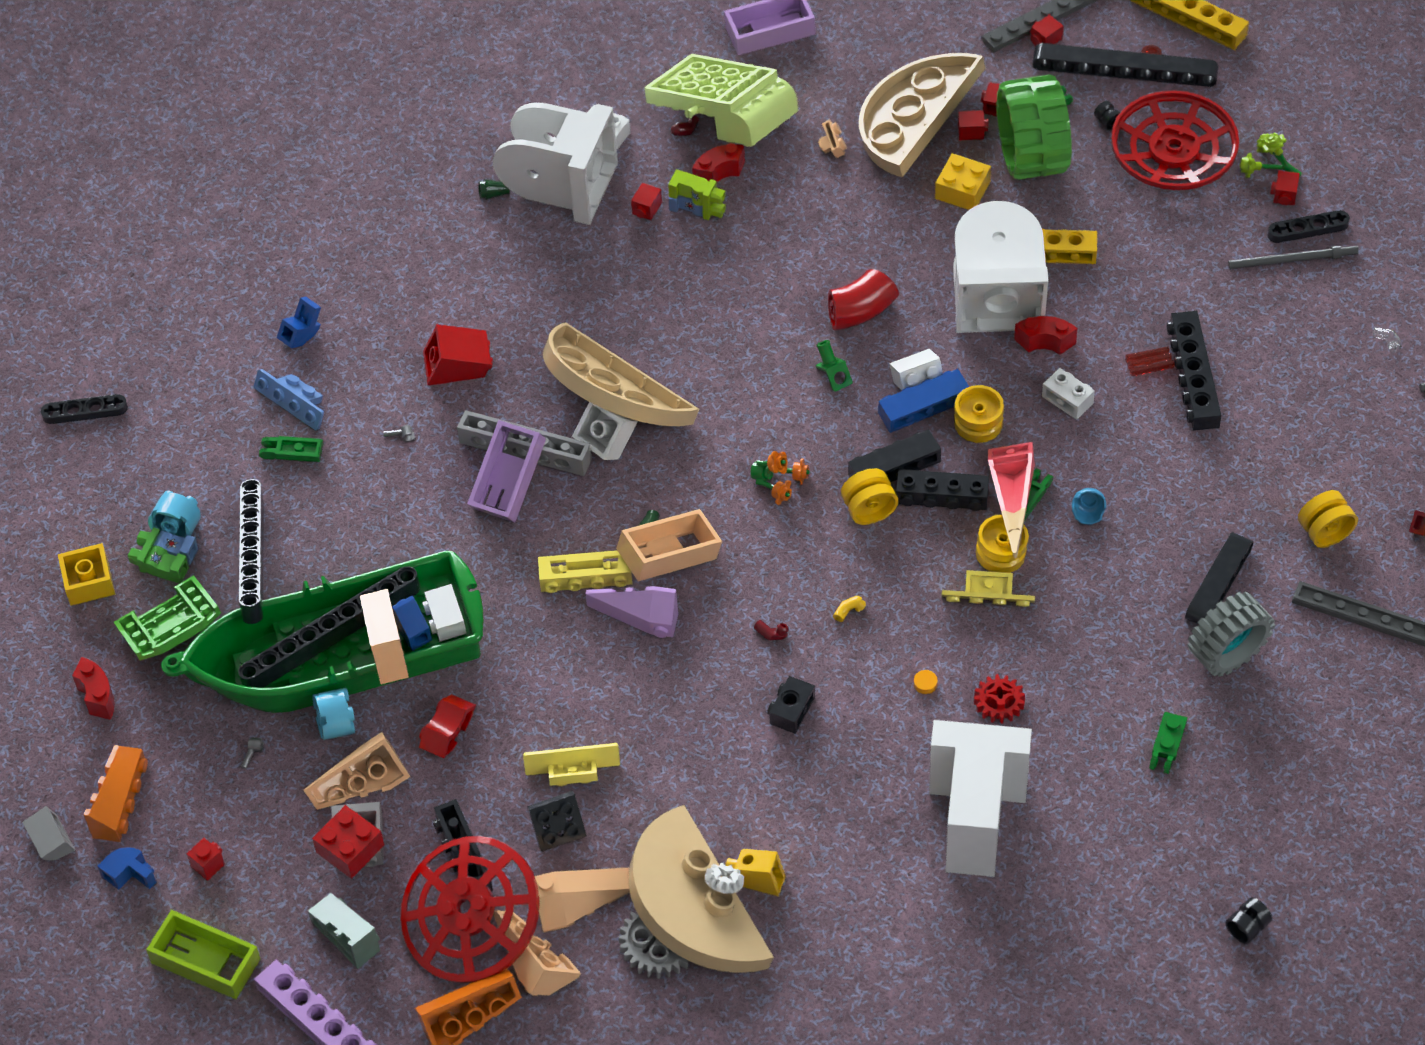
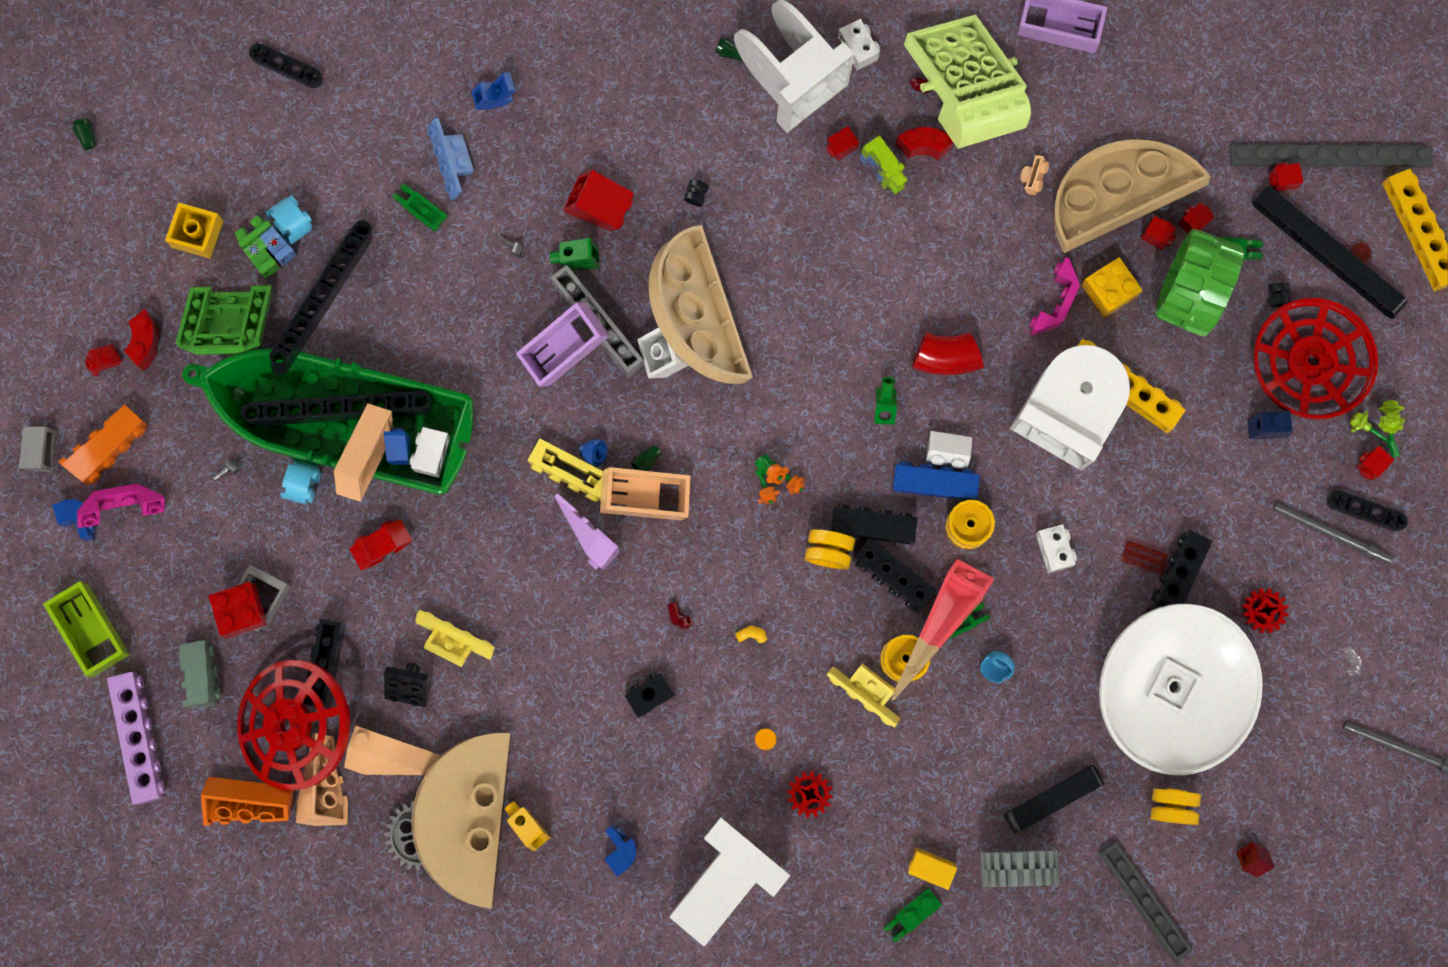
camera: 25 degrees right, 25 degrees up
(61, 728) = (102, 358): none -> red bracket
(184, 815) = (149, 502): none -> dark pink slope
(206, 858) = (136, 546): red brick -> none
(363, 771) = (297, 542): light nougat wedge -> none
(469, 397) = (577, 254): none -> green torso
(542, 304) = (696, 192): none -> black wheel
(595, 542) = (594, 452): none -> blue brick
(723, 884) = (486, 834): white gear -> none
(863, 842) = (626, 853): none -> blue brick
(917, 196) = (1067, 277): none -> dark pink slope
(1045, 333) = (1077, 480): red brick -> none
(1155, 691) = (932, 868): none -> yellow hinge
(1177, 205) = (1272, 425): none -> dark blue torso
(1279, 402) = (1214, 696): none -> white dish
(1283, 340) = (1265, 618): none -> red gear

